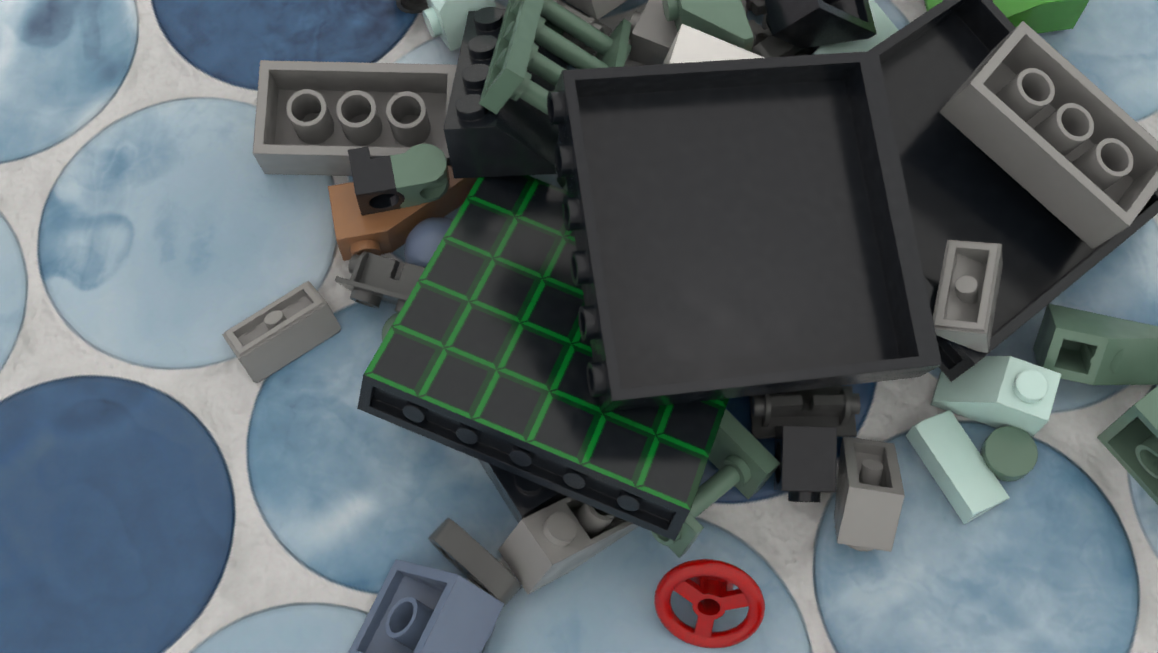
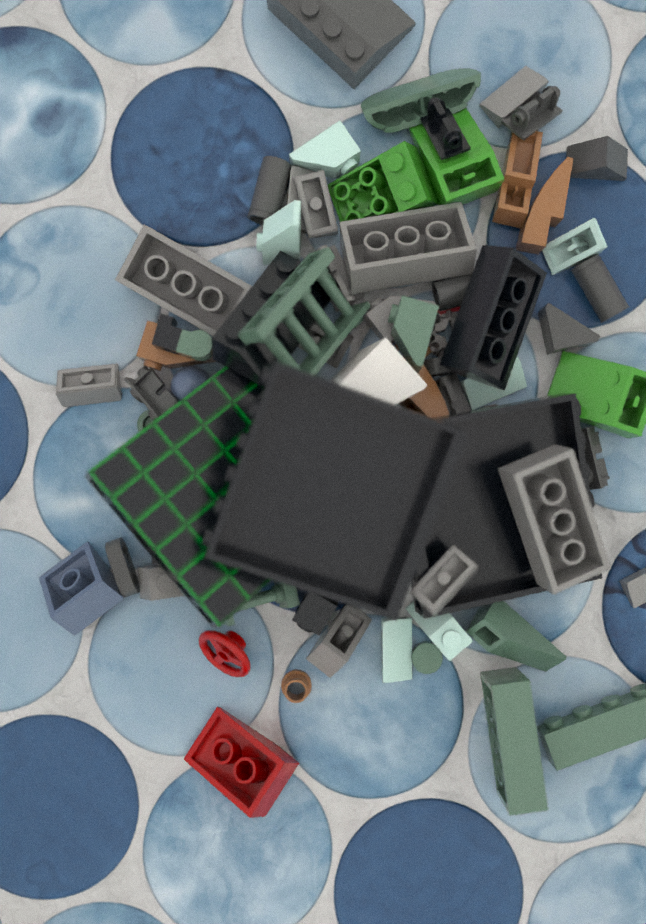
camera: 30 degrees right, 20 degrees up
(834, 615) = (296, 676): none -> medium nougat piece

